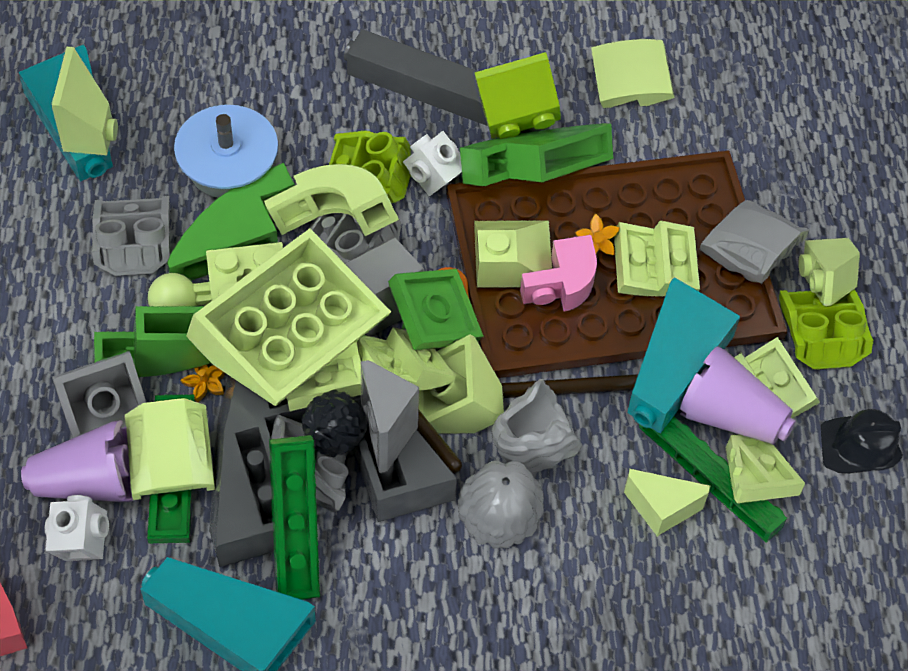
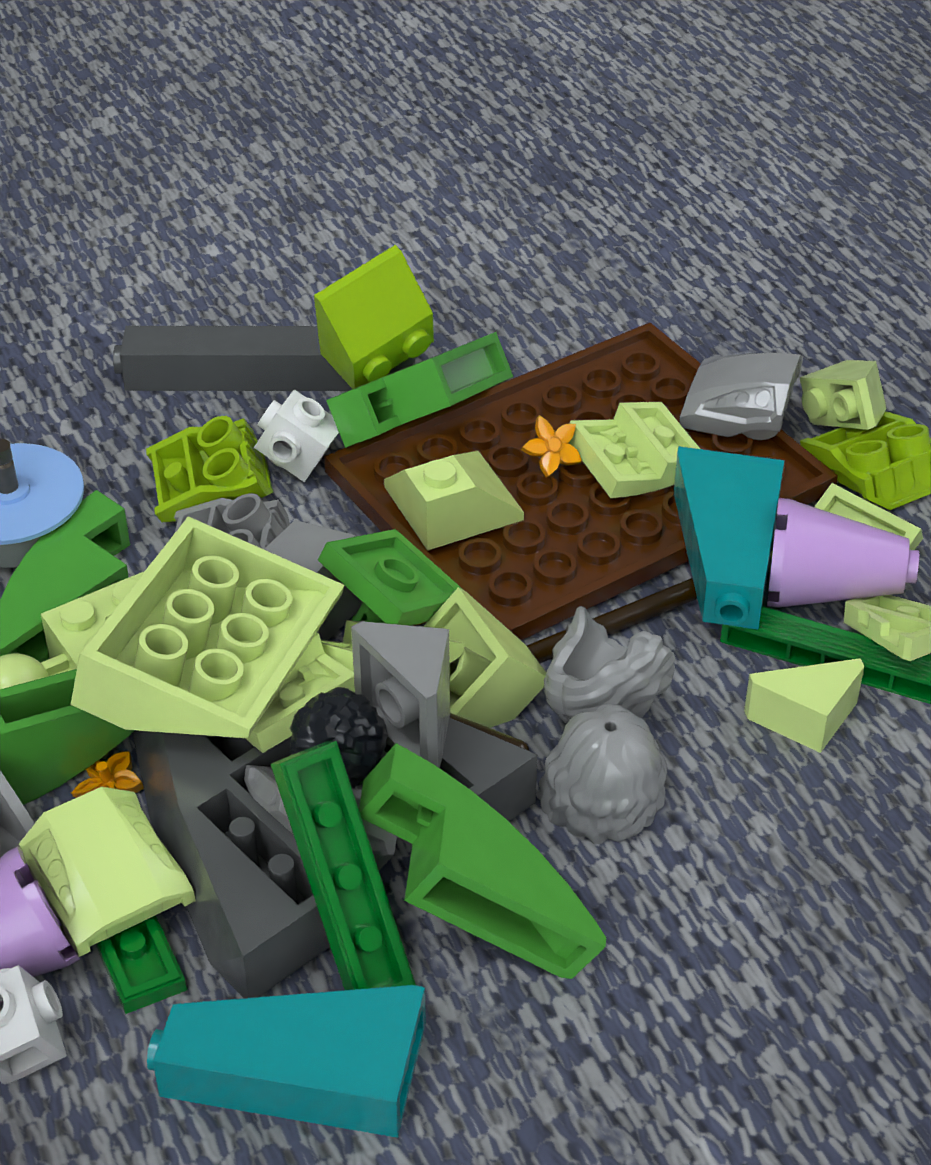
camera: 20 degrees left, 15 degrees down
(333, 190) = (204, 485): yellowish green arch -> none
(379, 541) = (478, 867): none -> bright green slope
(571, 278) = (539, 492): bright pink brick -> none
(632, 72) = (484, 285): yellowish green slope -> none

